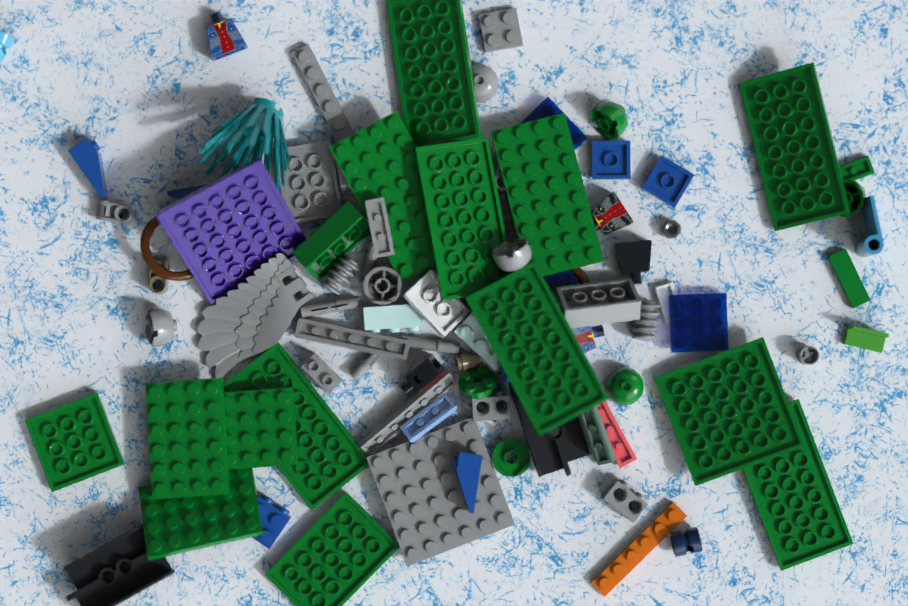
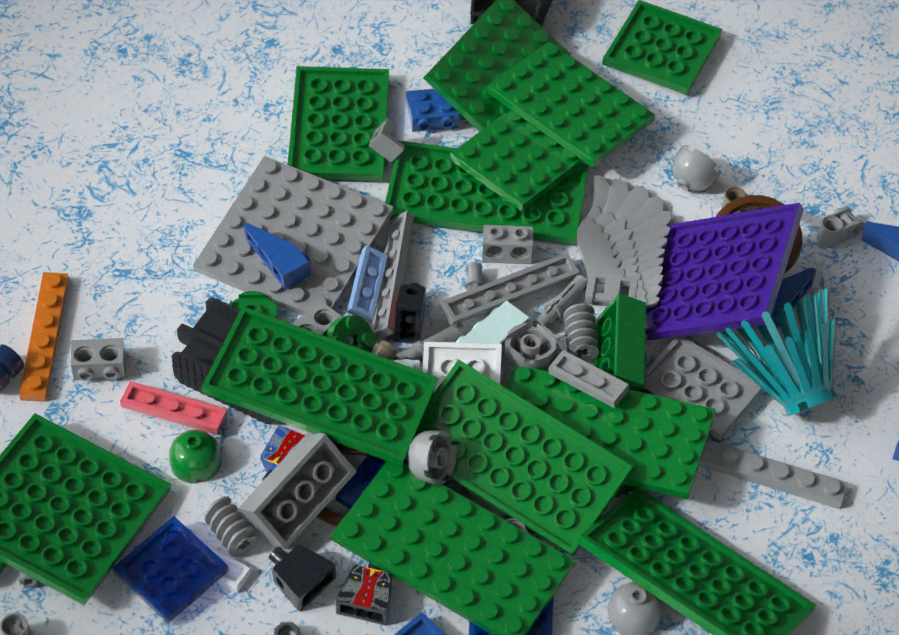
camera: 135 degrees right, 35 degrees down
(324, 512) = (384, 143): none -> light grey panel
(598, 436) = (189, 392): sand green tile -> none

